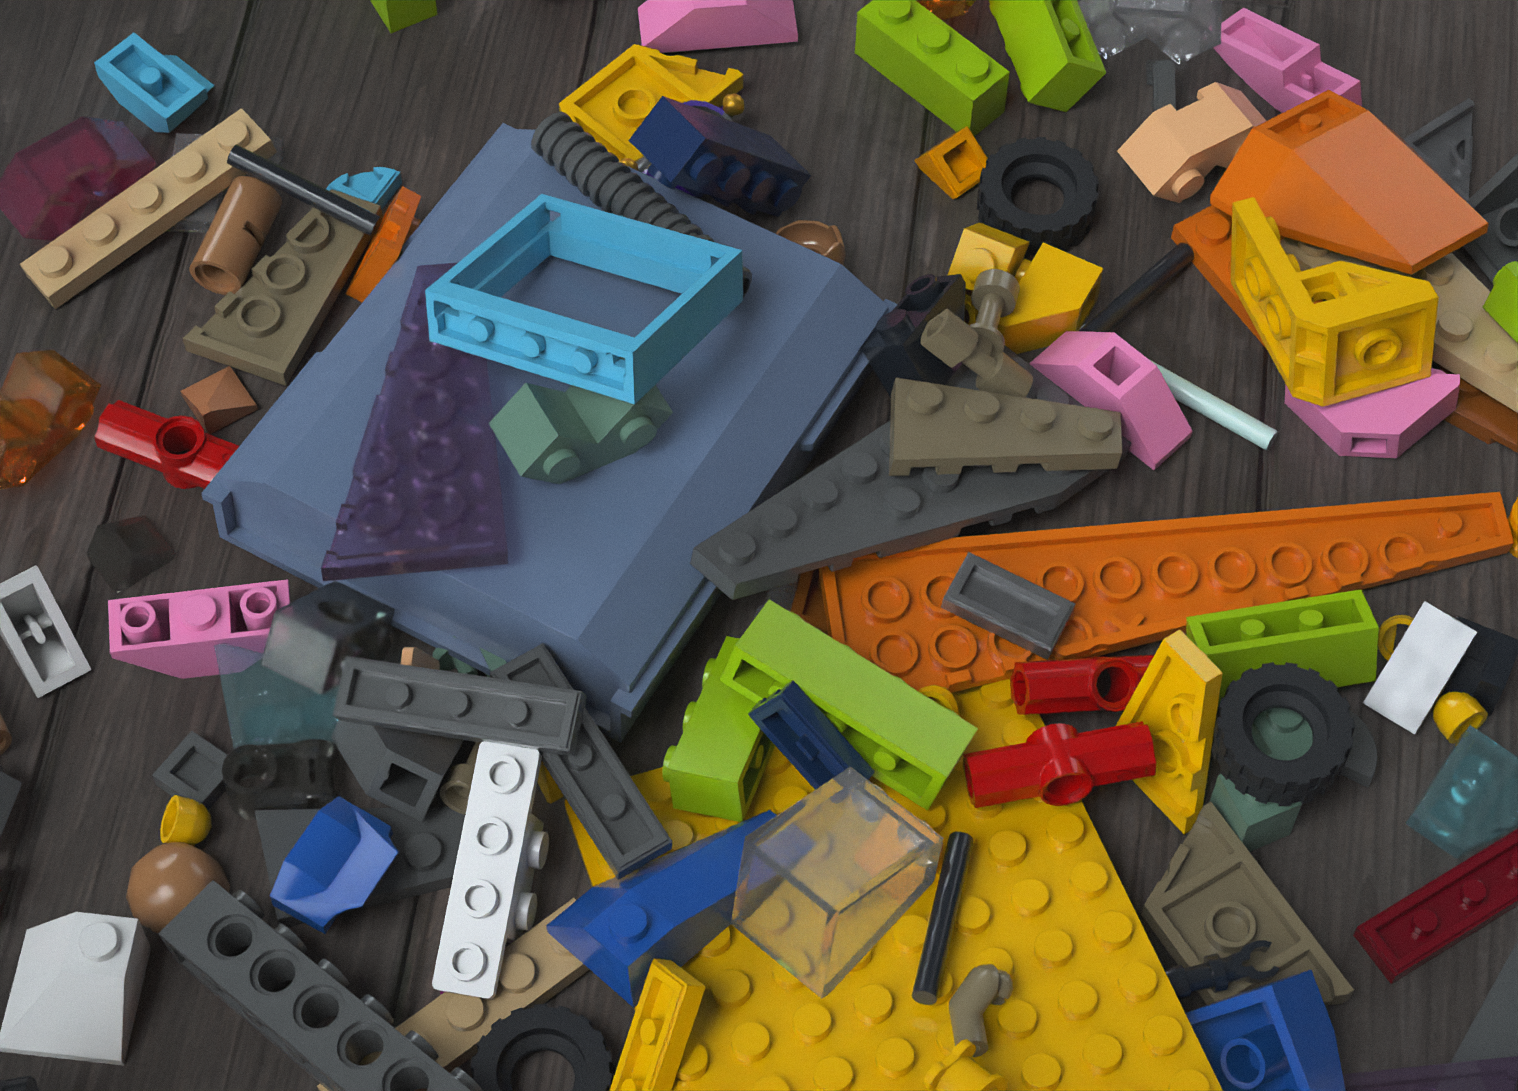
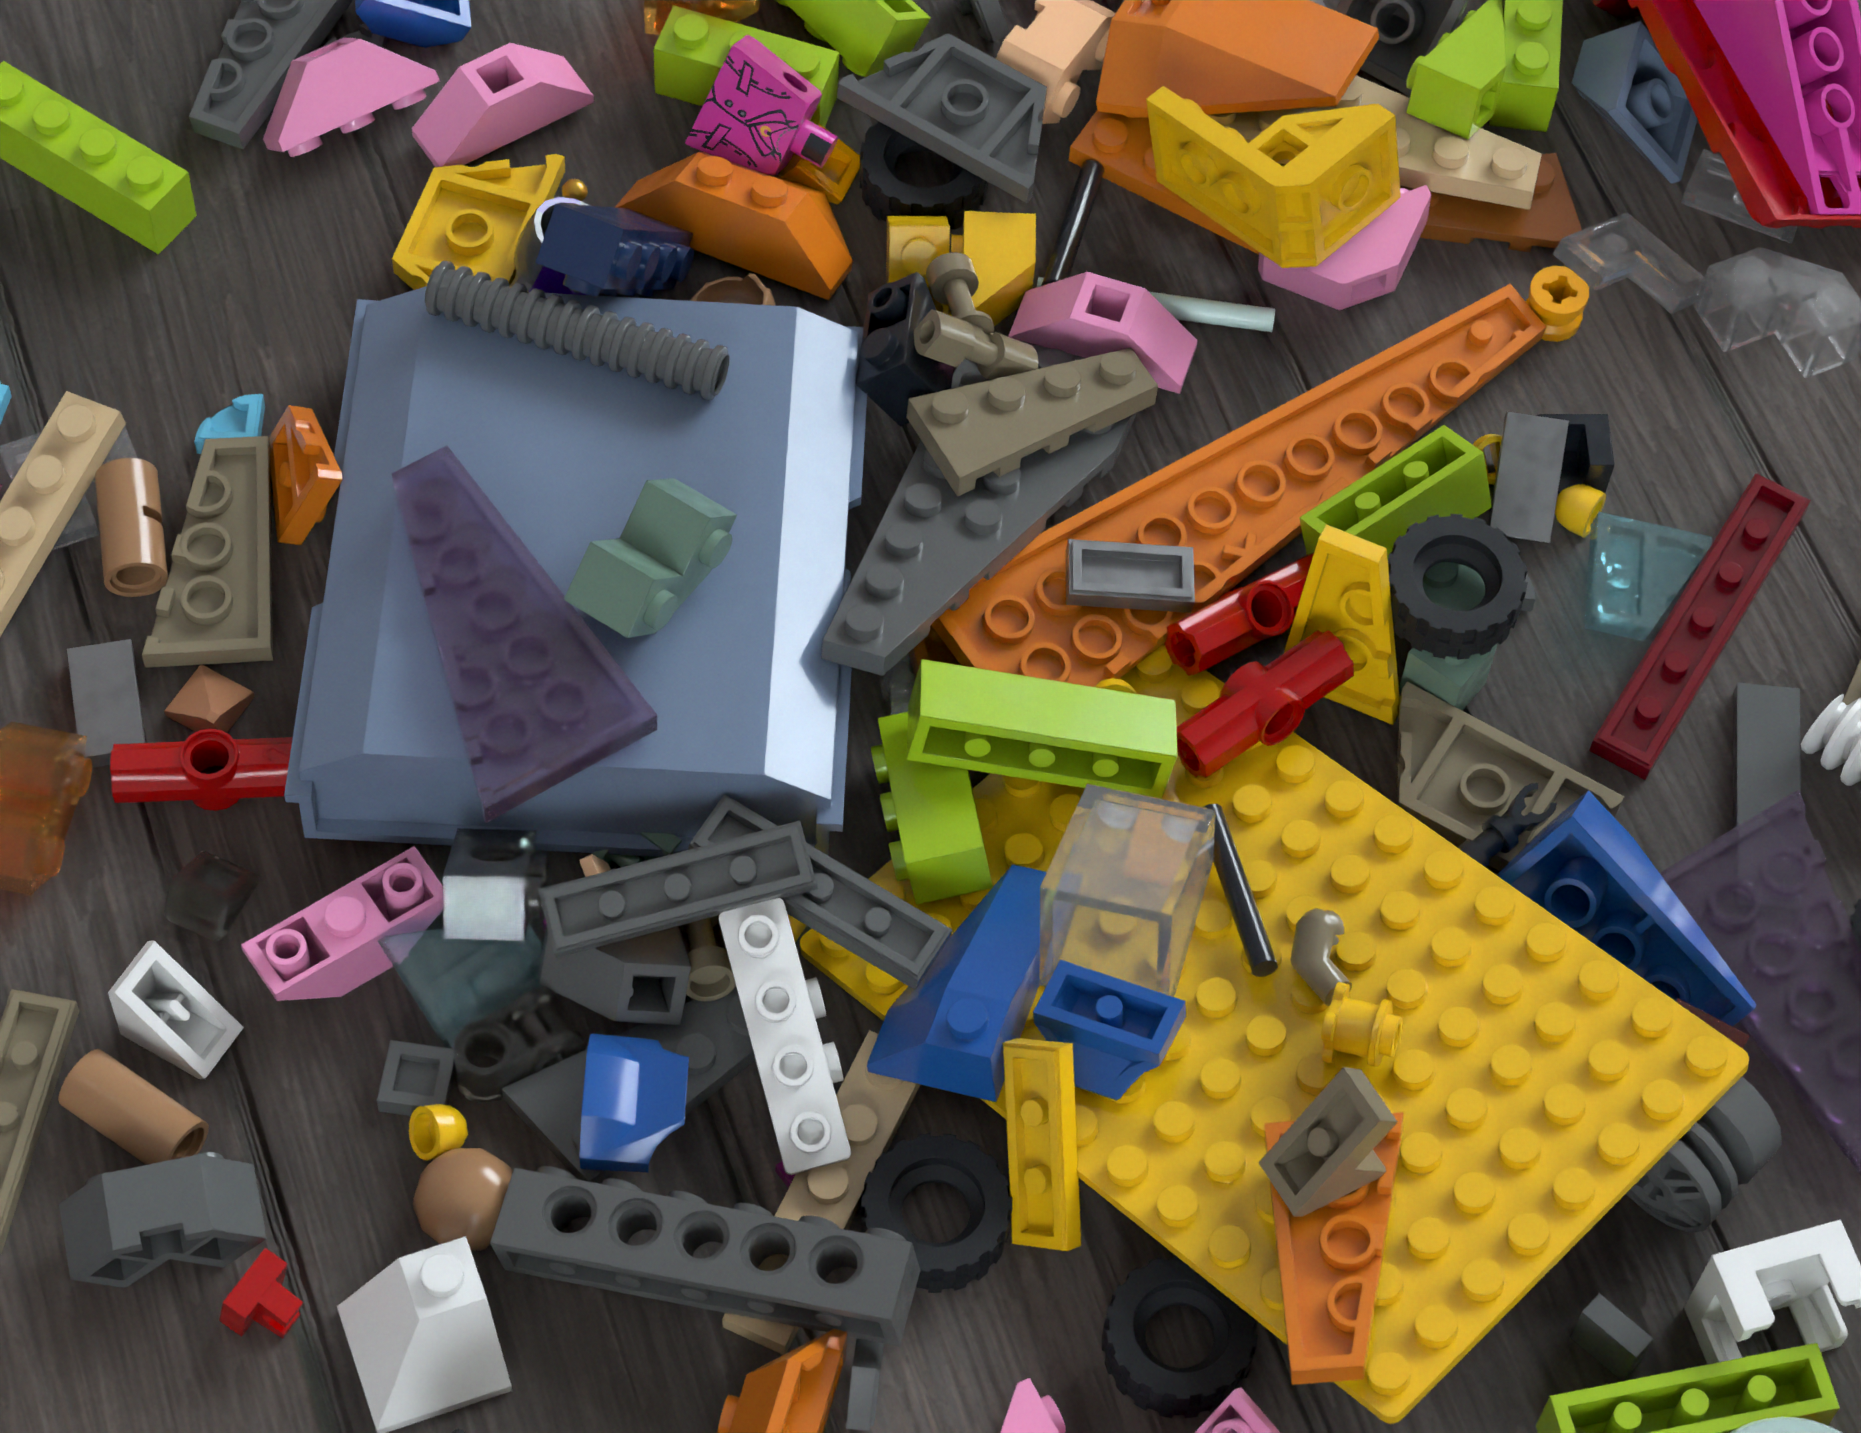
camera: 30 degrees left, 0 degrees up
(142, 362) = (106, 697): none -> flat silver tile
(304, 190) = (185, 450): black bar -> none
(472, 317) = (600, 491): medium azure window -> none
(753, 985) = (1112, 1024): none -> blue slope
(806, 736) = (1034, 775): dark blue tile -> none
(868, 183) = (749, 220): none -> orange wedge
(915, 96) = (760, 113): none -> dark pink torso
(1086, 157) = (959, 108): none -> dark grey wing

